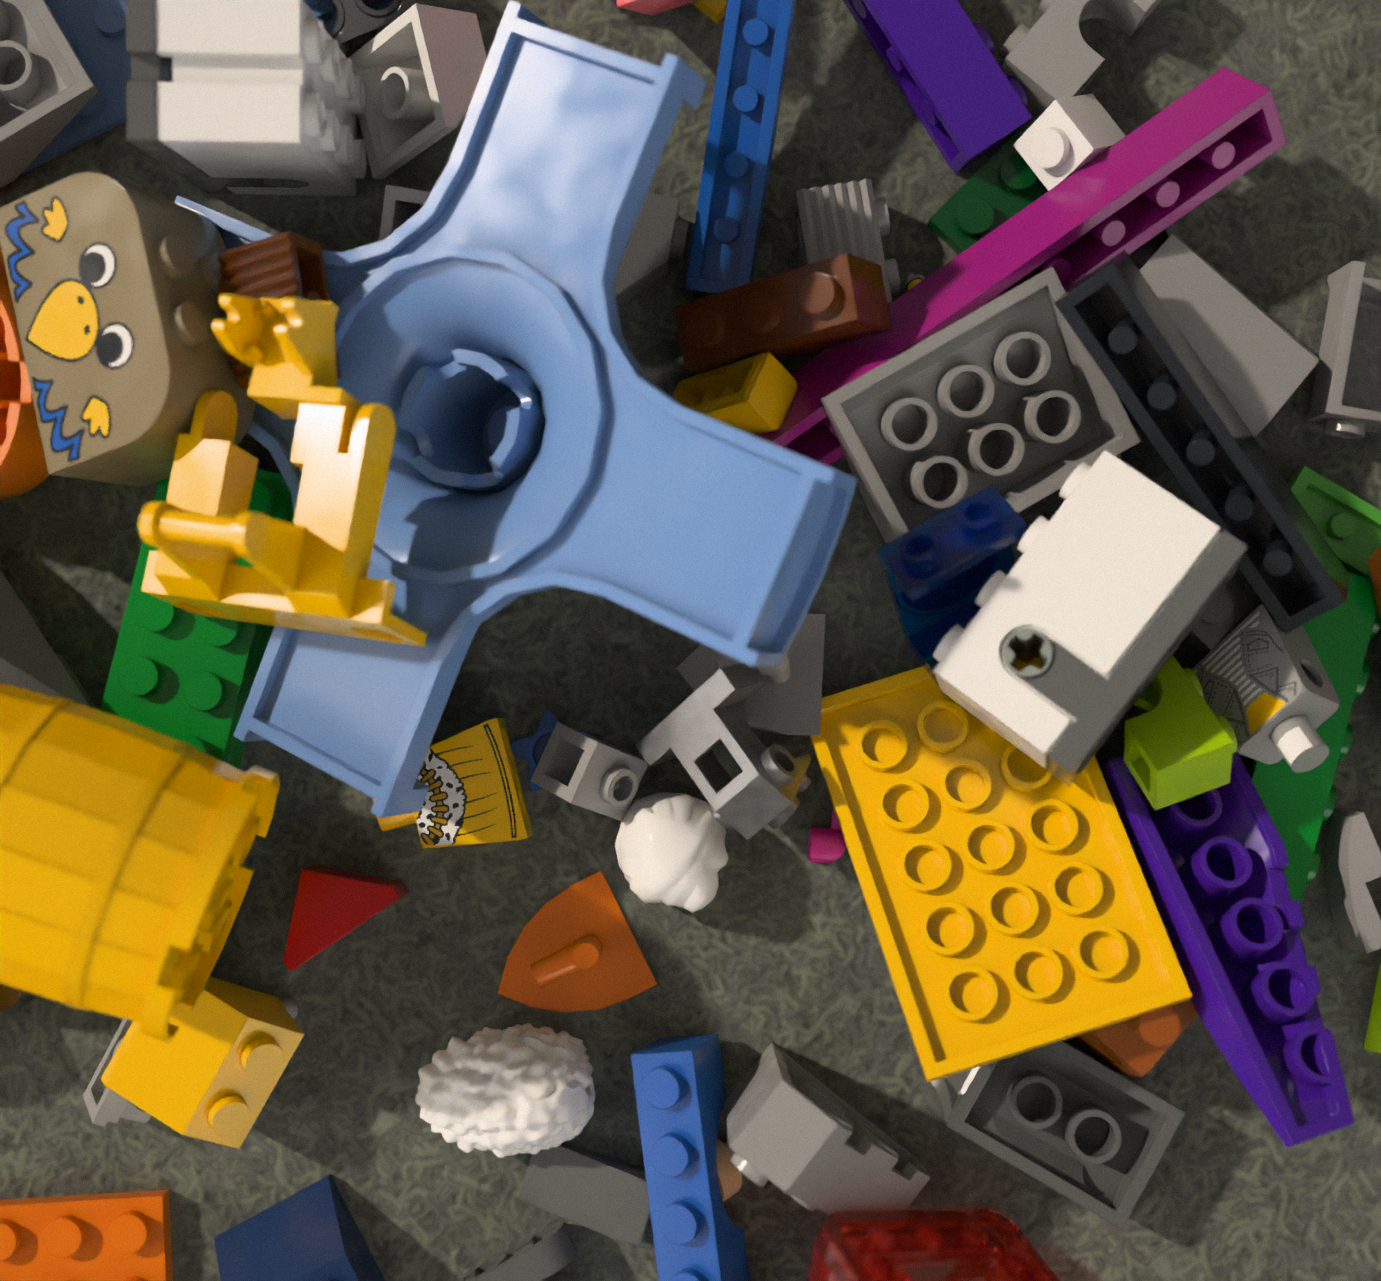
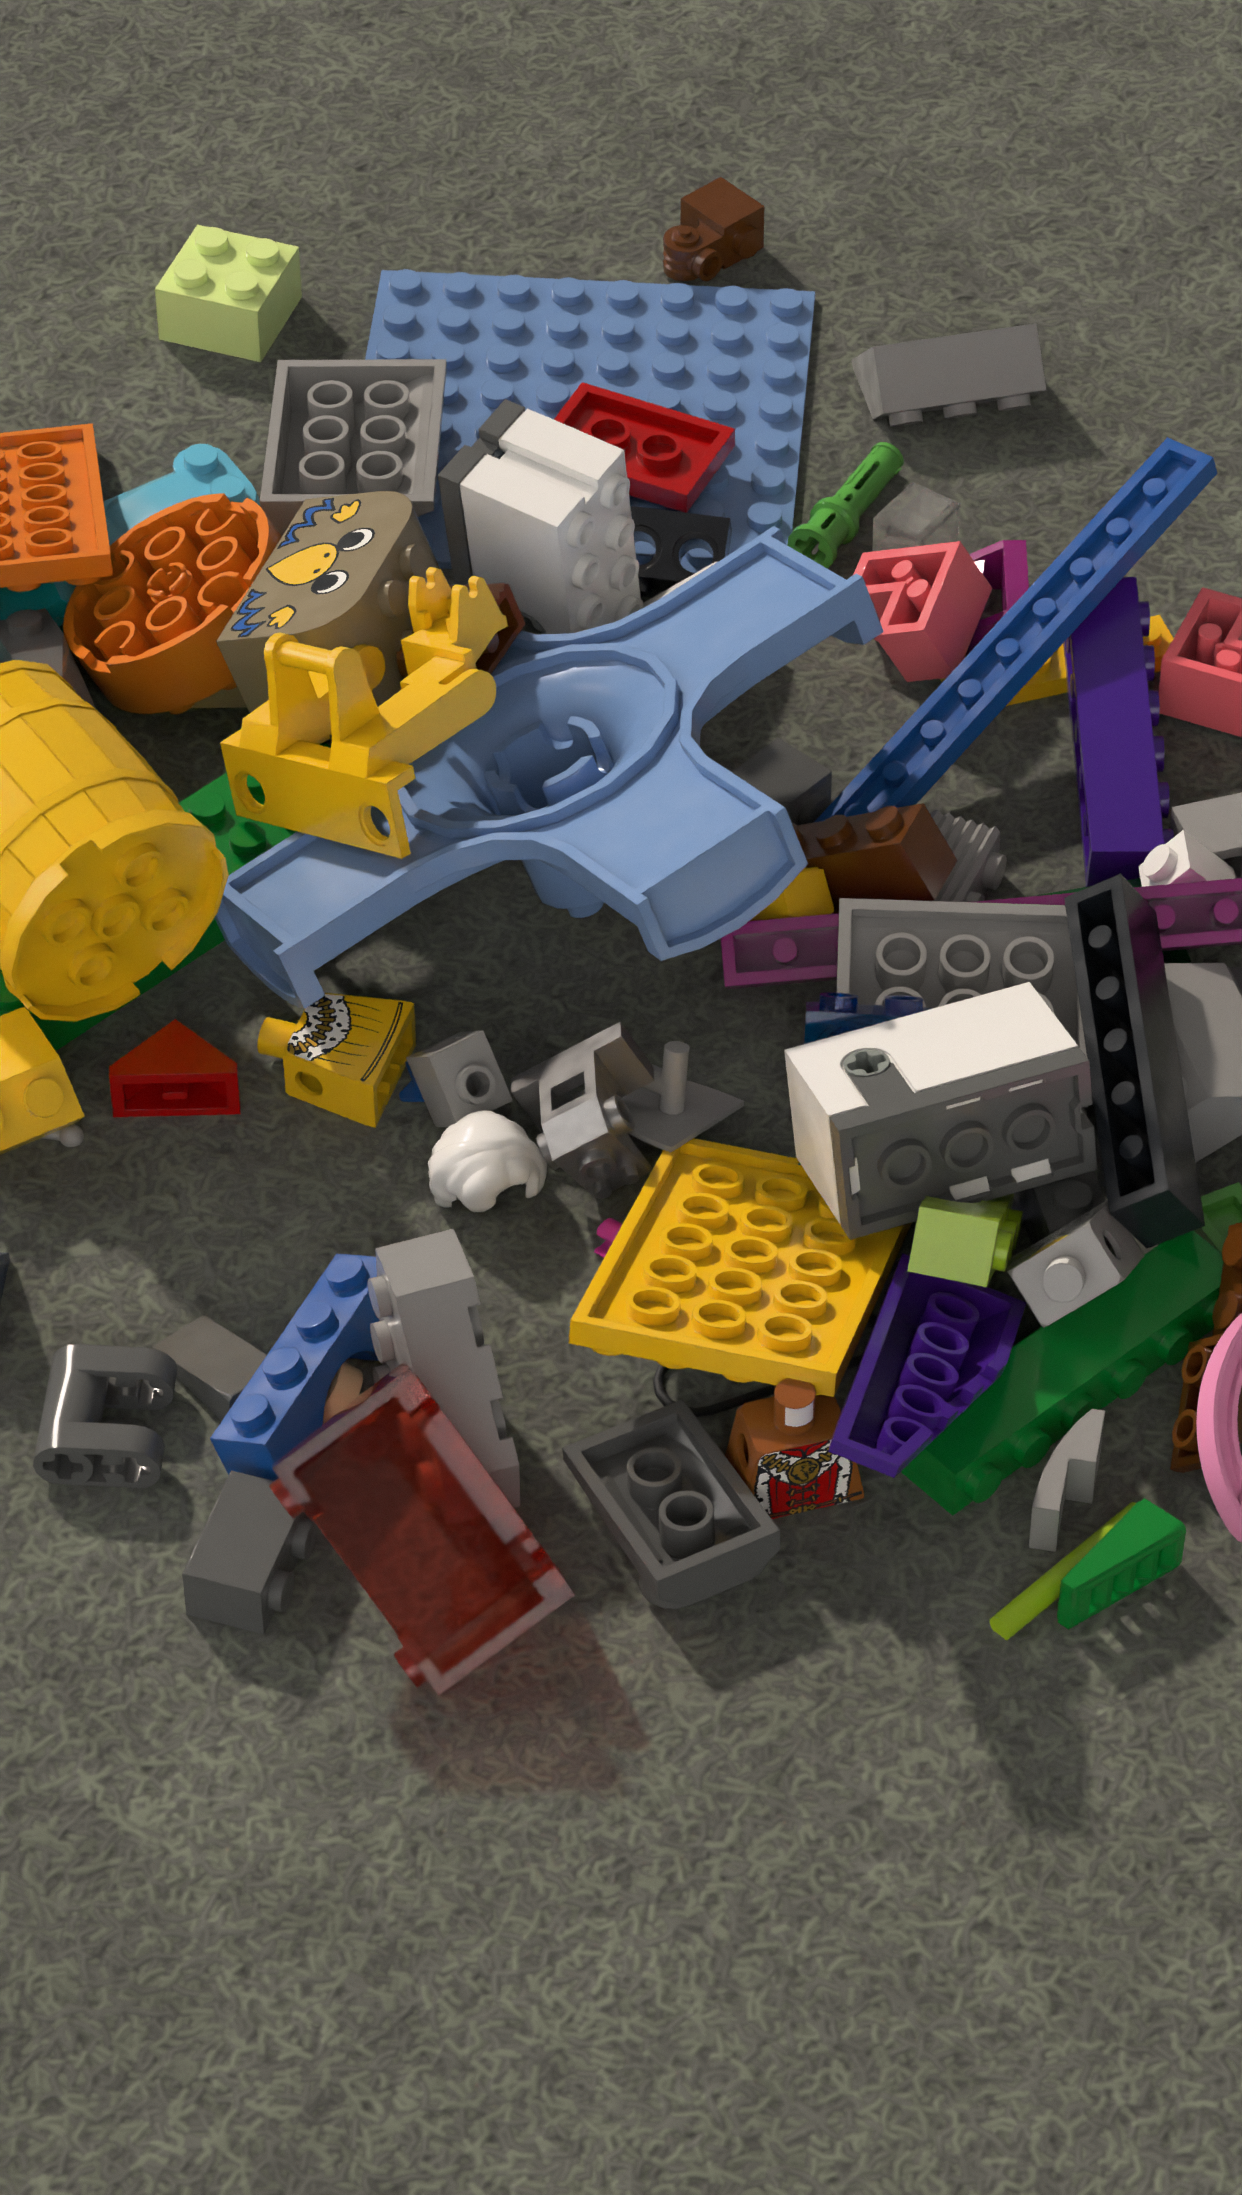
camera: 35 degrees right, 40 degrees down
(508, 1090) = (215, 1249): white piece -> none
(576, 953) = (340, 1213): orange shield -> none

